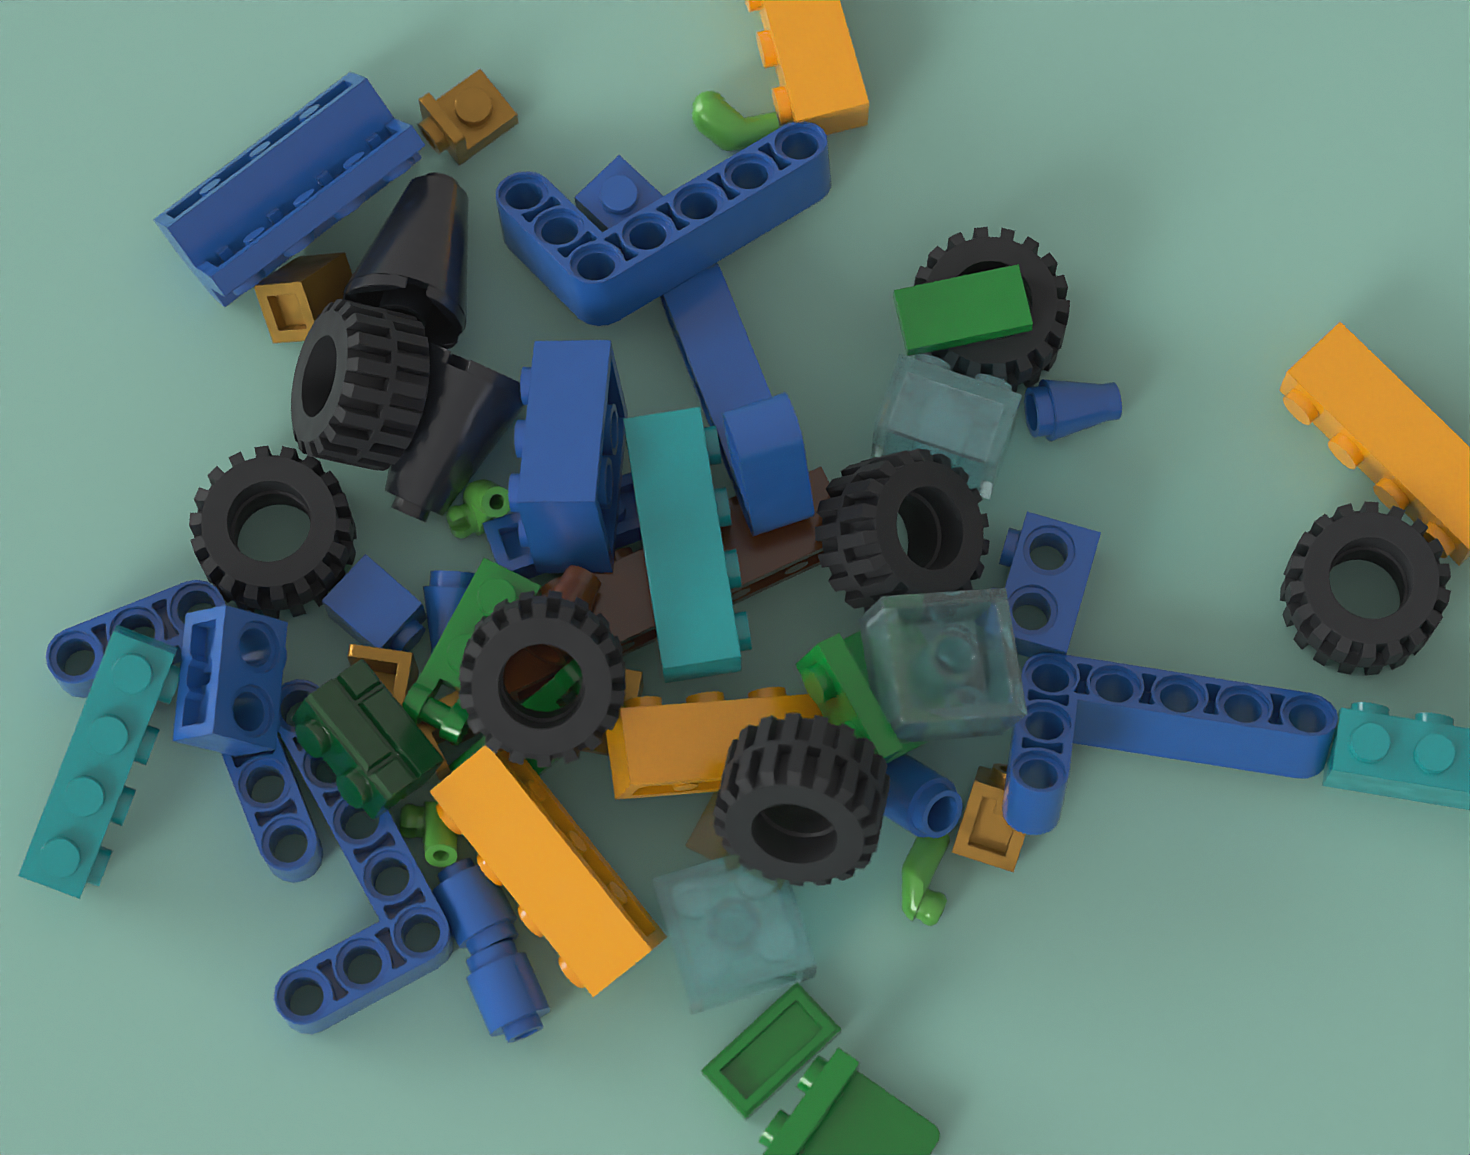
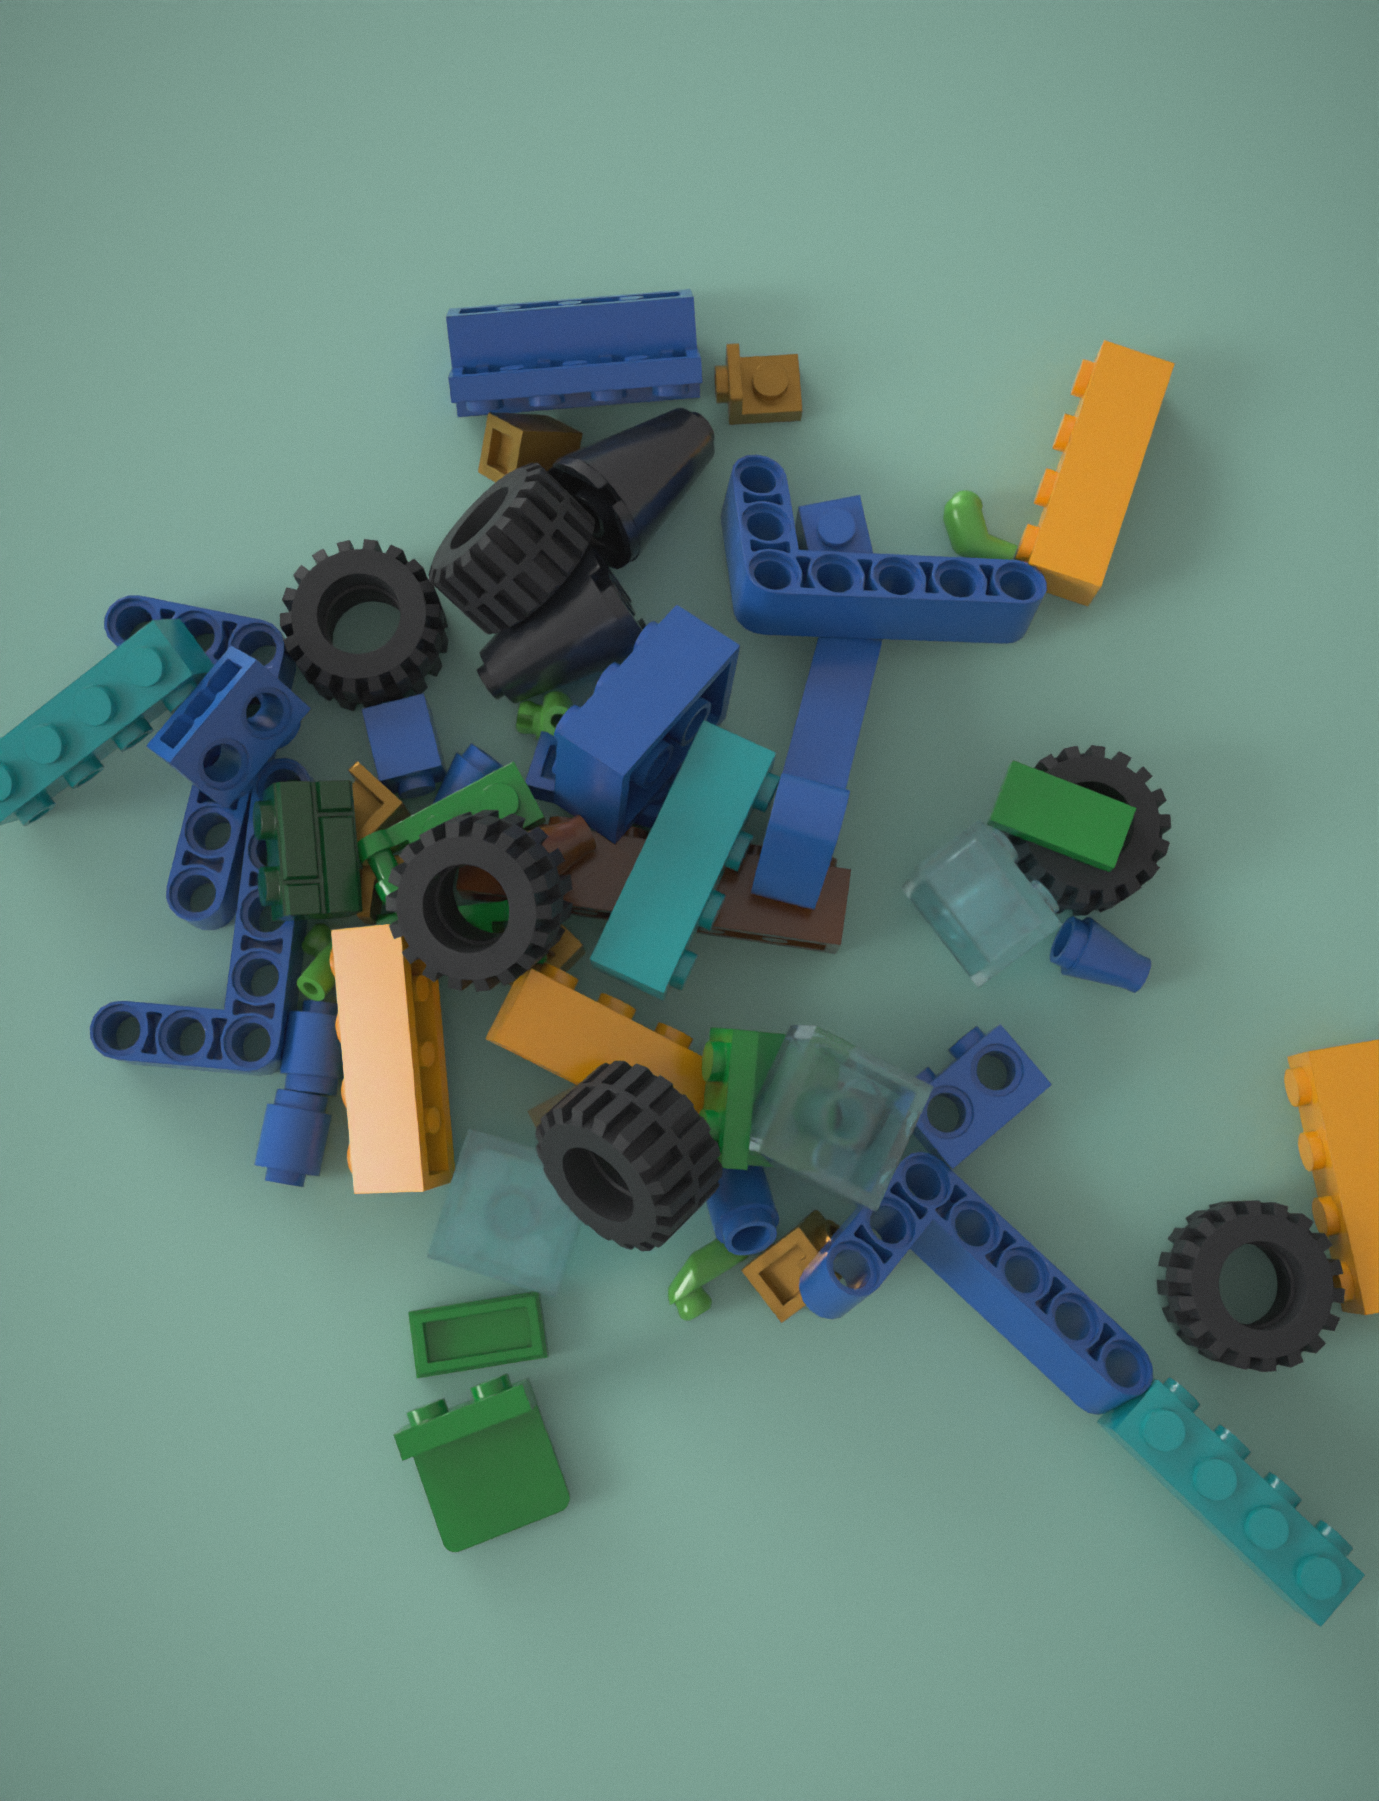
camera: 30 degrees right, 5 degrees up
(939, 519) = (919, 987): black tyre -> none

